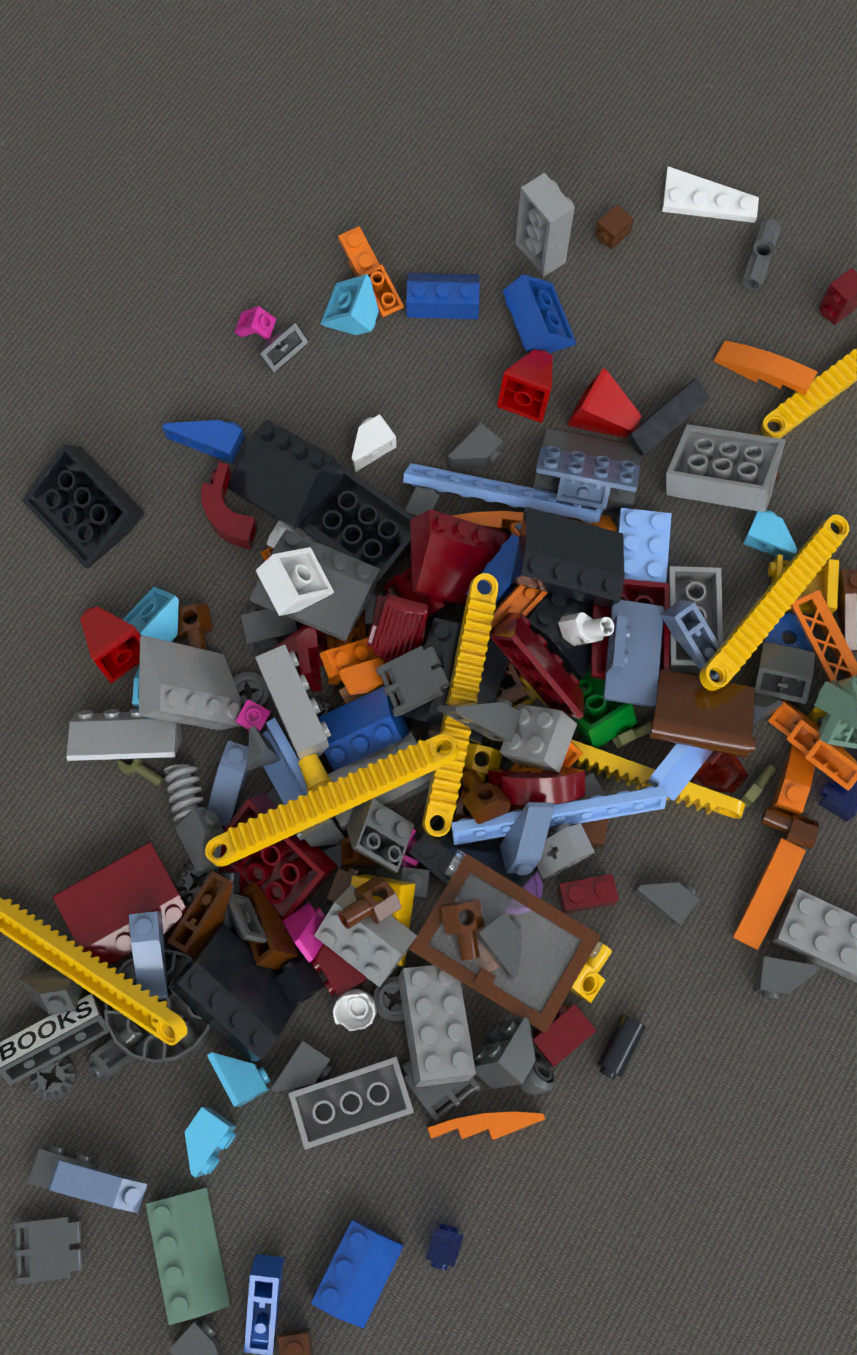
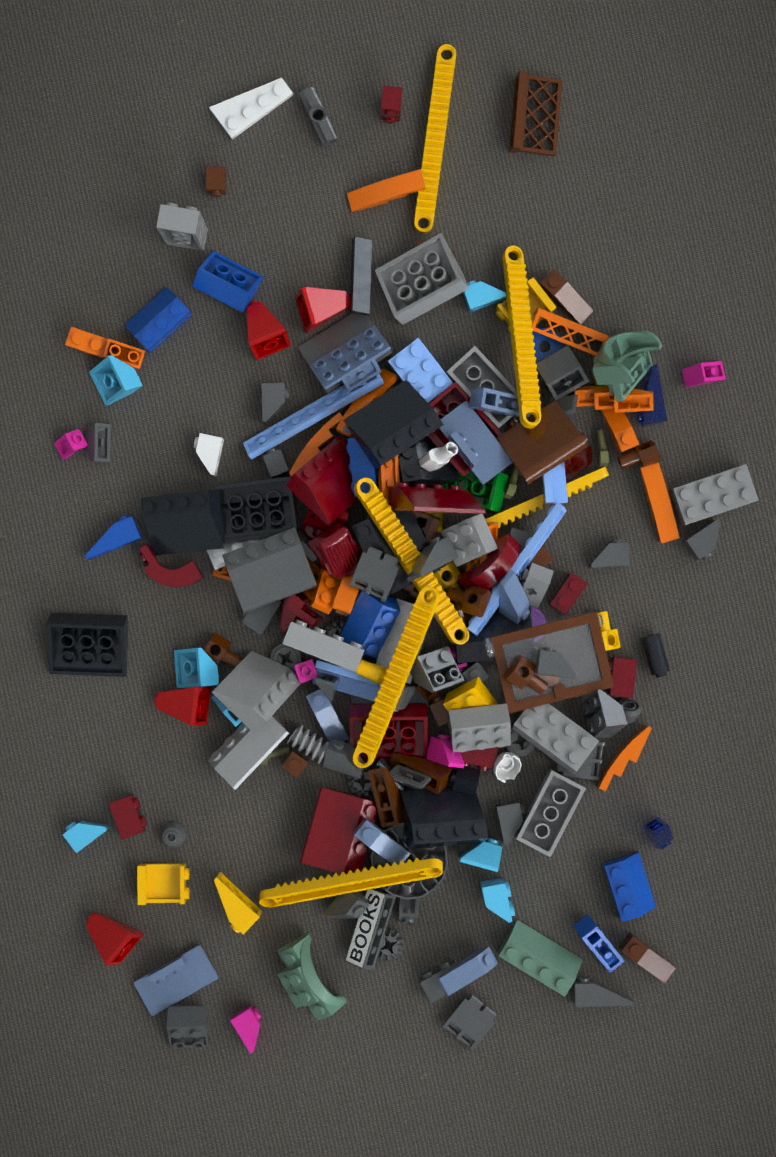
camera: 45 degrees left, 15 degrees up
(151, 799) = (295, 764): none -> reddish brown brick
(294, 580) = (260, 581): white slope -> none
(367, 906) = (470, 716): reddish brown piece -> none

